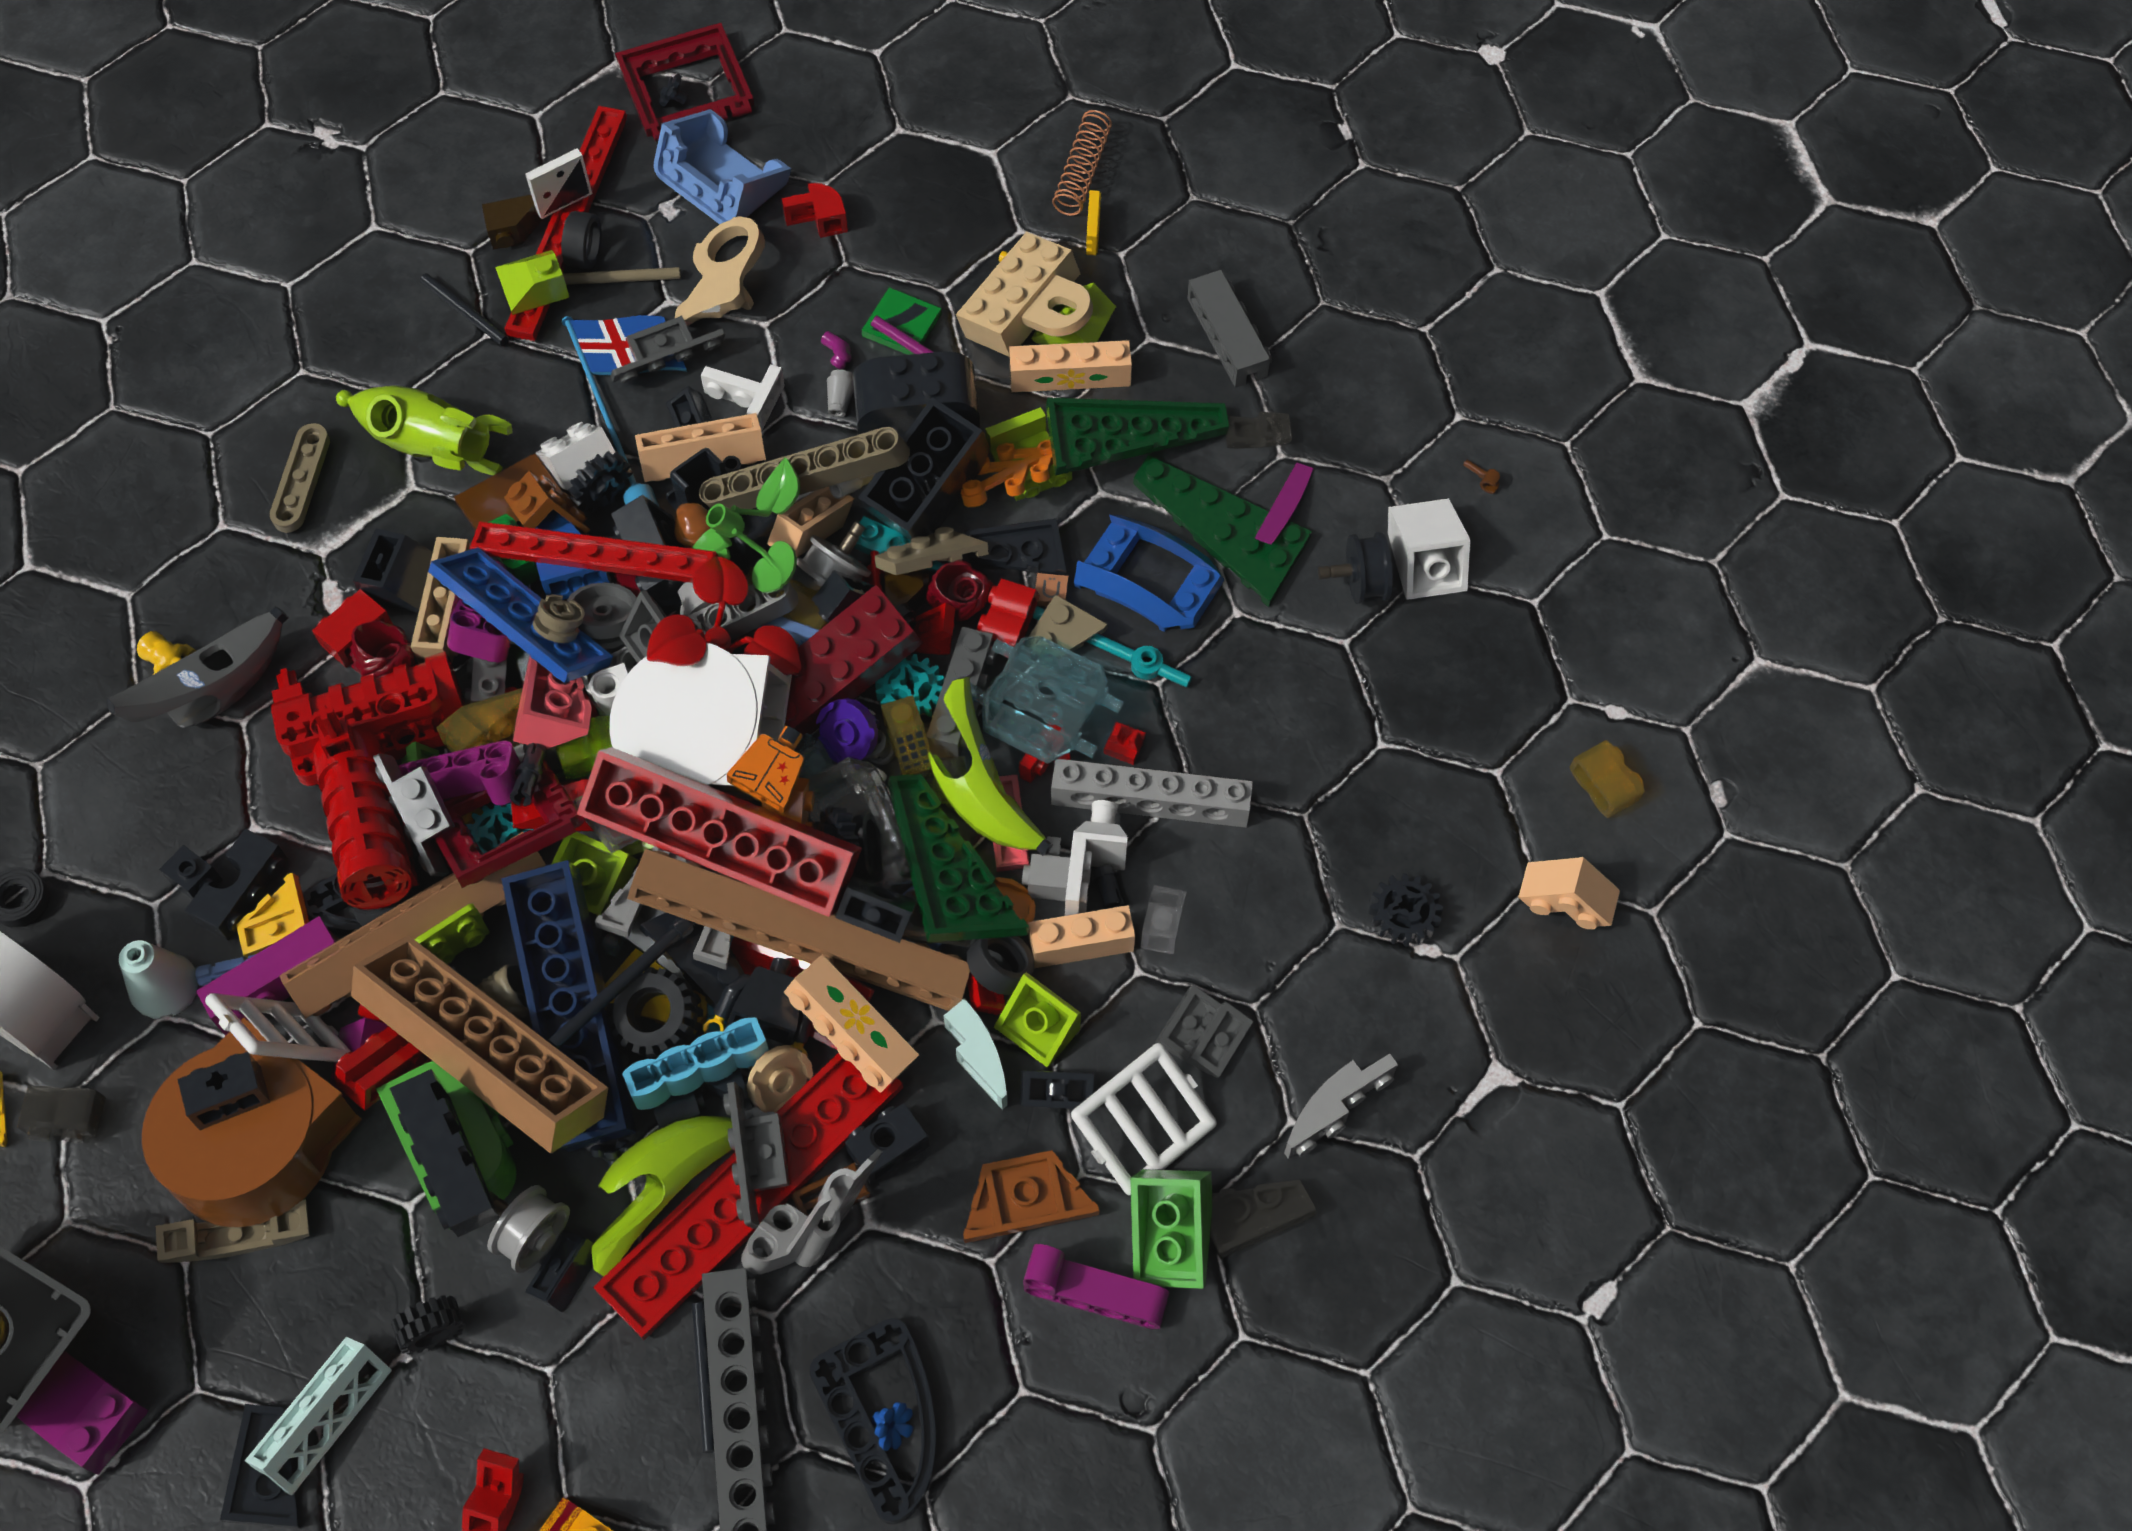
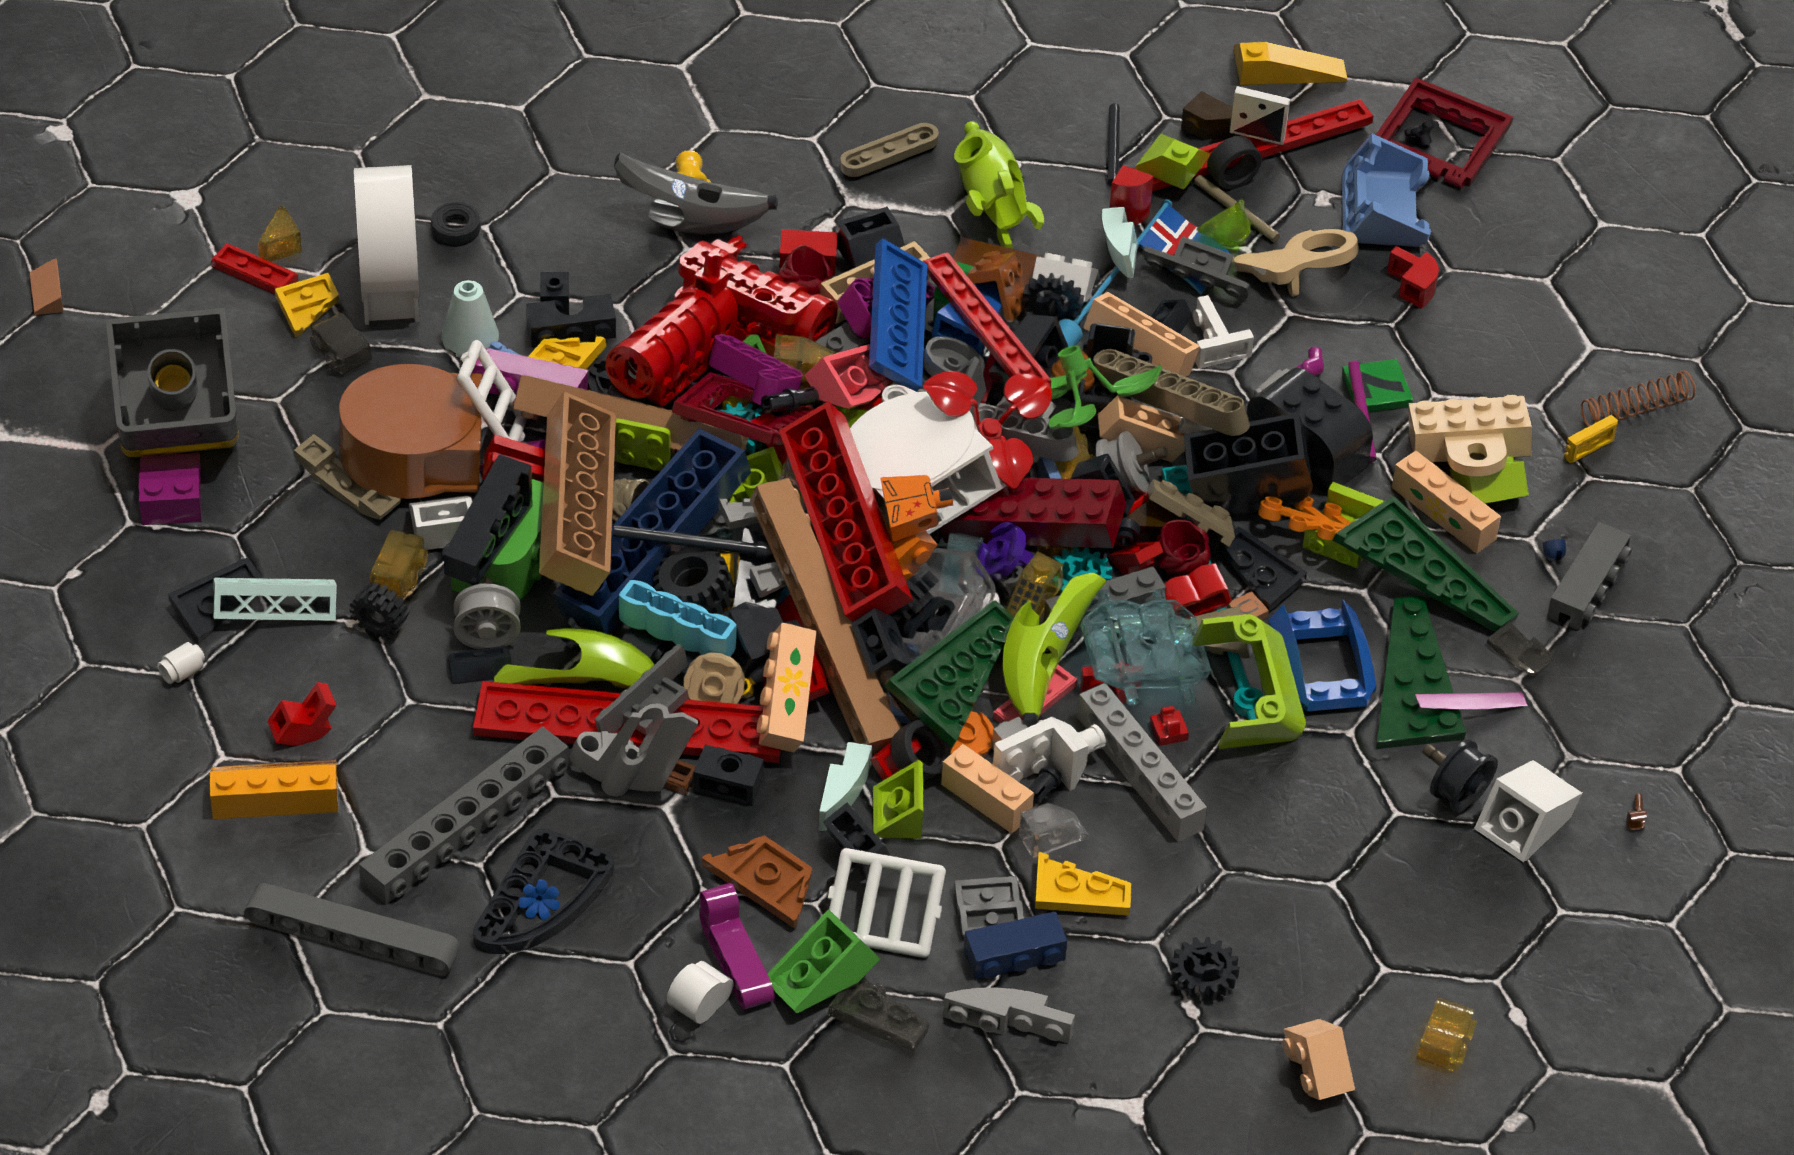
camera: 50 degrees right, 15 degrees down
(223, 1090) = (424, 389): black brick -> none
(367, 1178) = (438, 519): none -> white slope
(382, 1261) = (399, 562): none -> clear yellow brick
(420, 808) = (707, 356): bracket -> none
(499, 134) = (1275, 64): none -> yellow wedge
(544, 340) = (1133, 192): none -> red brick
(558, 619) = (913, 333): dark tan wheel -> none
(580, 384) = (1120, 239): none -> light aqua slope
(638, 294) = (1229, 226): none -> clear neon green hat
(1117, 1356) = (699, 991): none -> white piece
(1158, 629) = (1280, 710): none -> lime windscreen
(1179, 331) = (1554, 549): none -> dark blue hinge
(1241, 948) = (1075, 890): none -> yellow wing
(1269, 1043) = (1015, 945): none -> dark blue brick

